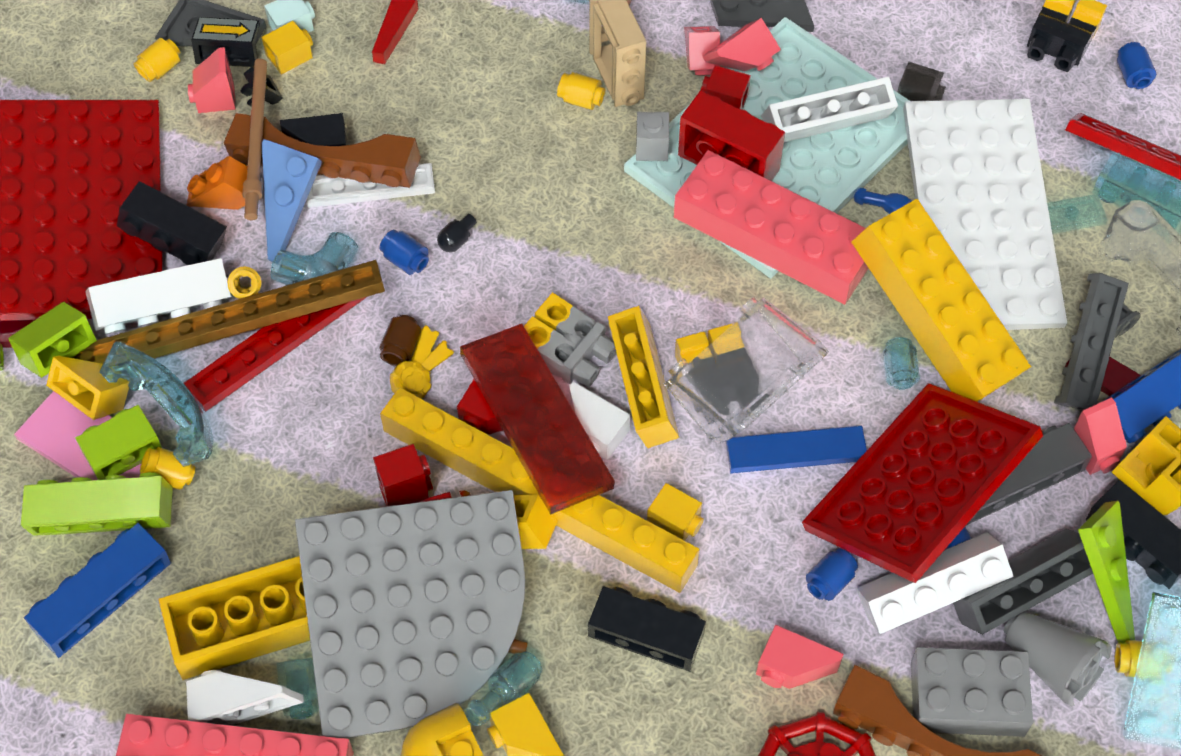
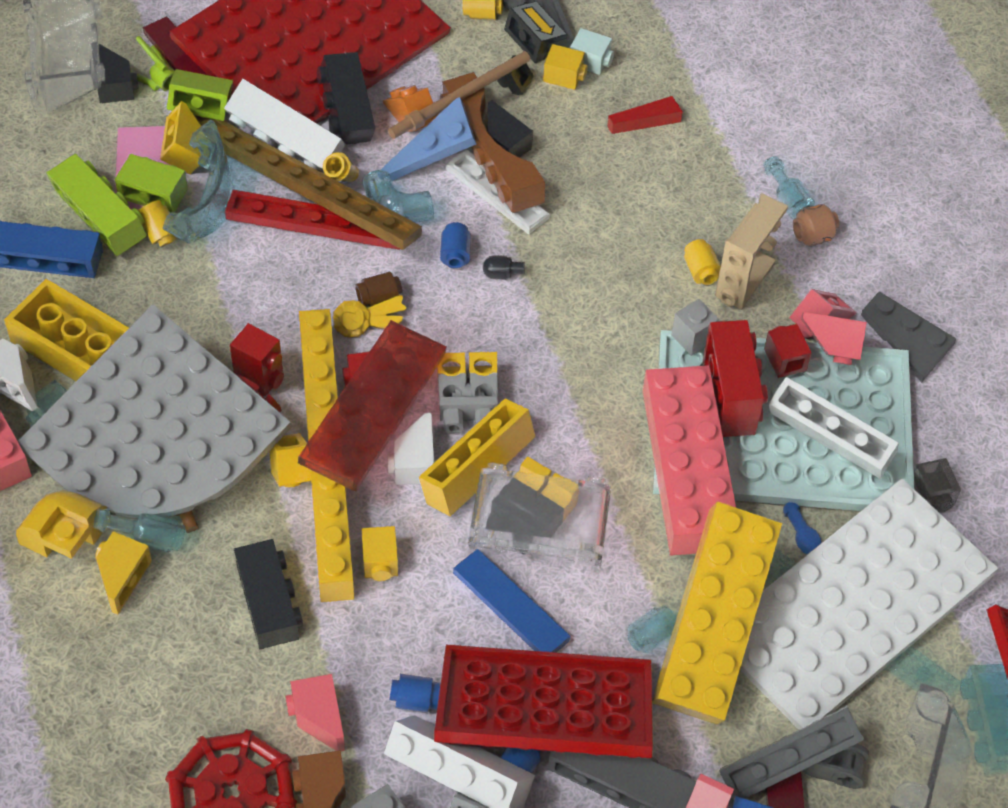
camera: 50 degrees right, 5 degrees down
(213, 84) = (488, 46): coral slope -> none

